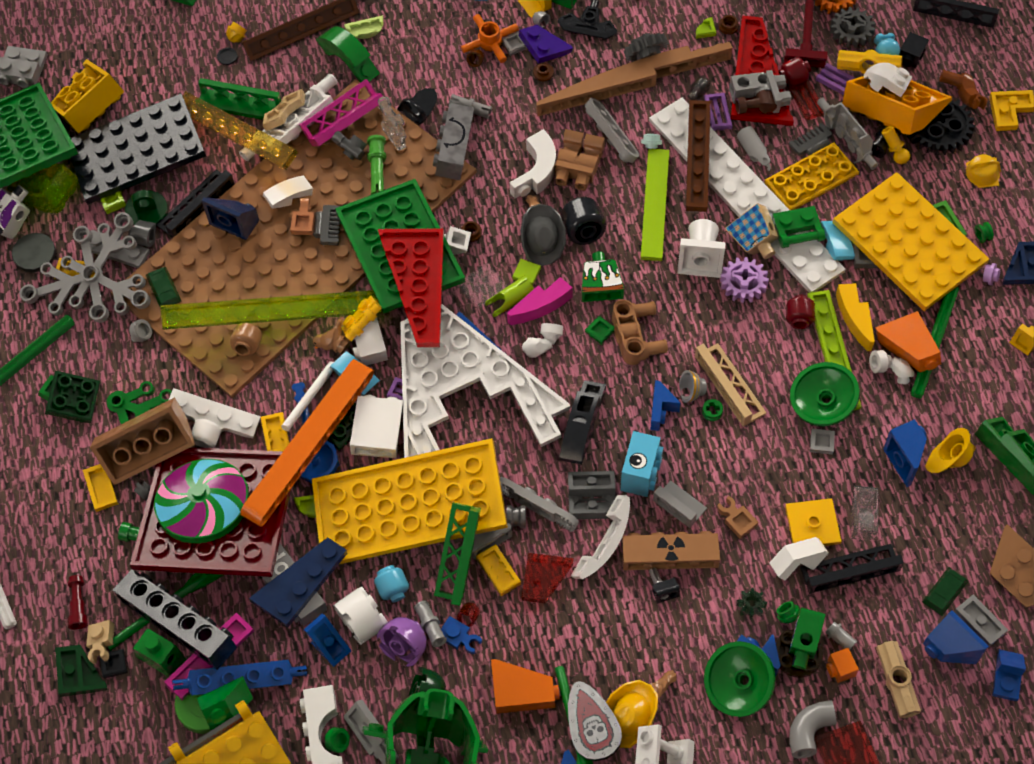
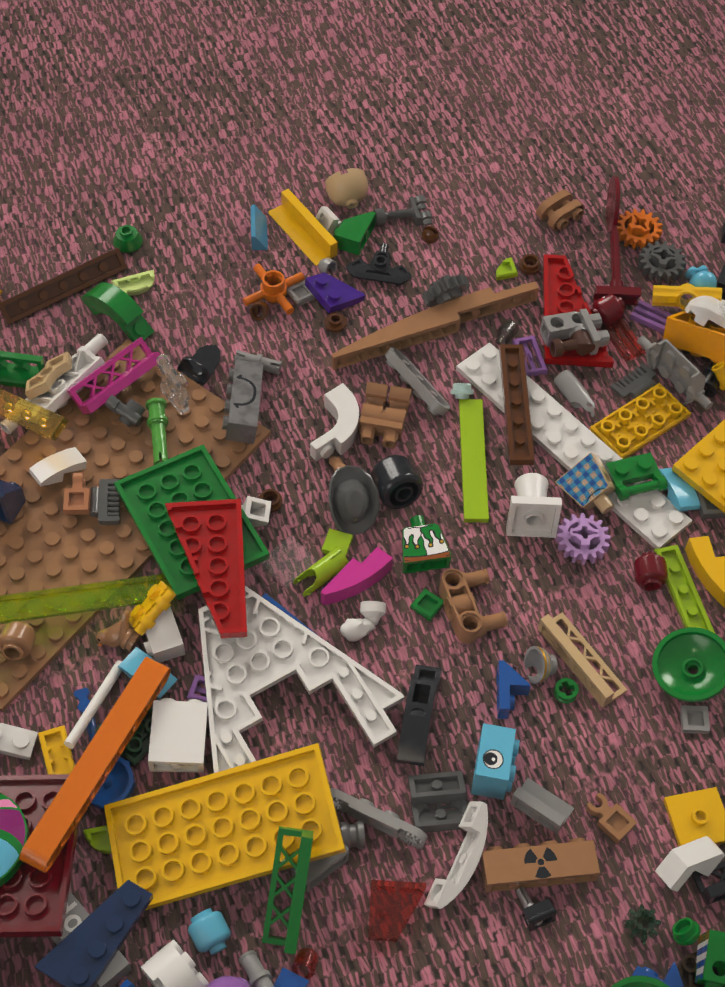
camera: 10 degrees left, 5 degrees down
(498, 570) = (337, 904): yellow plate -> none

